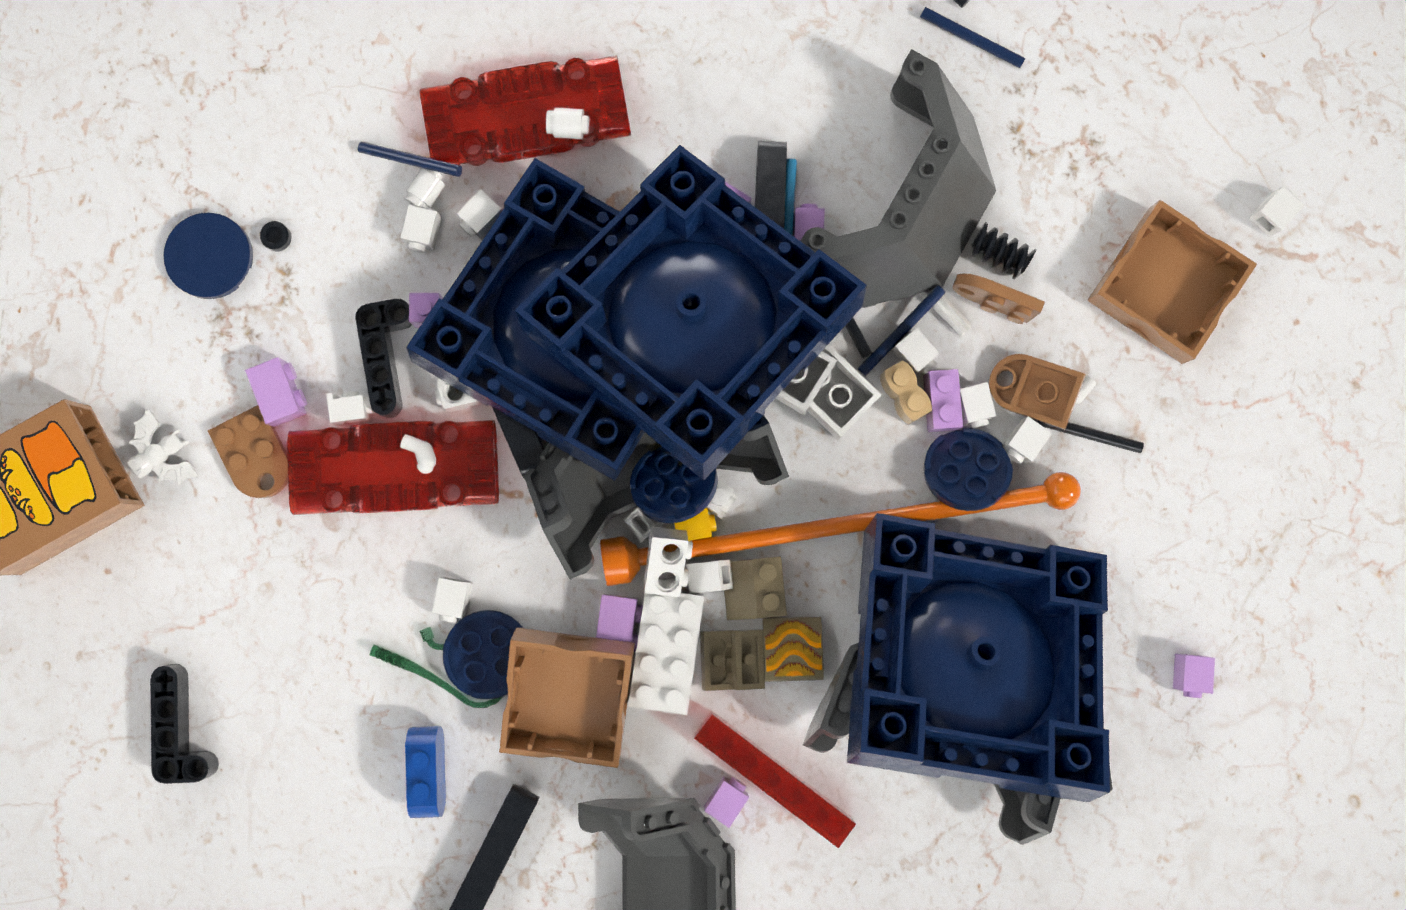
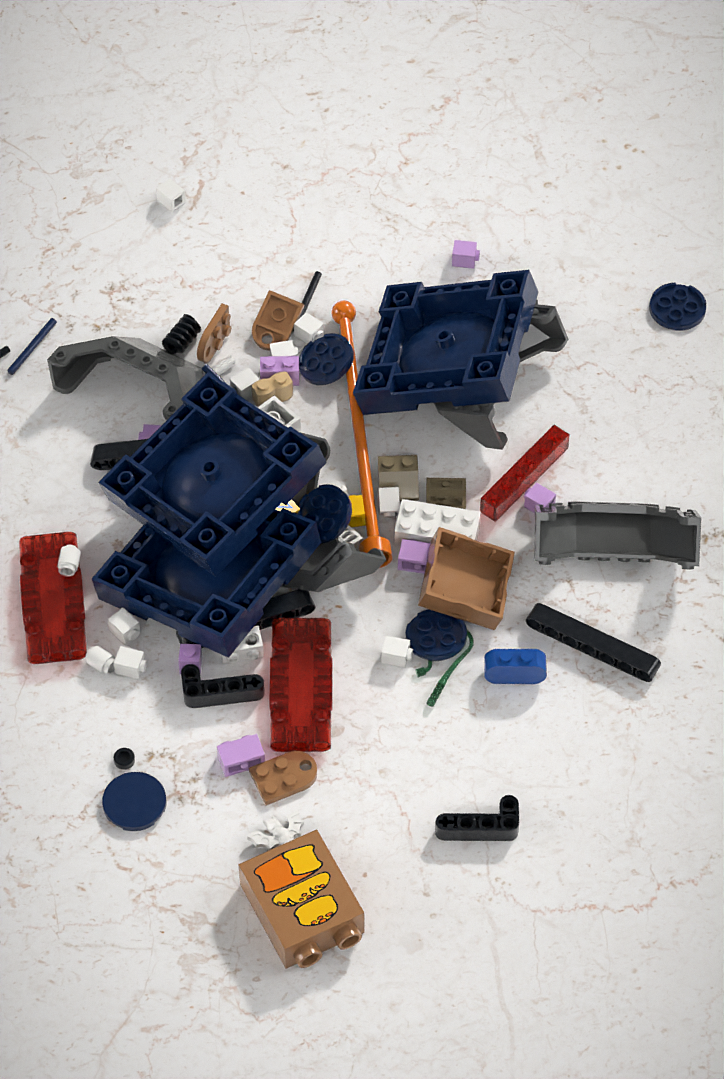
camera: 80 degrees left, 30 degrees down
(348, 409) = (256, 710): white brick -> none
(410, 159) = (79, 665): dark blue bar -> none
(423, 452) = (291, 654): white arm -> none
(661, 561) = (377, 515): white brick -> none
(793, 649) = (440, 460): slope -> none
(1171, 282) = (211, 249): medium nougat tile -> none

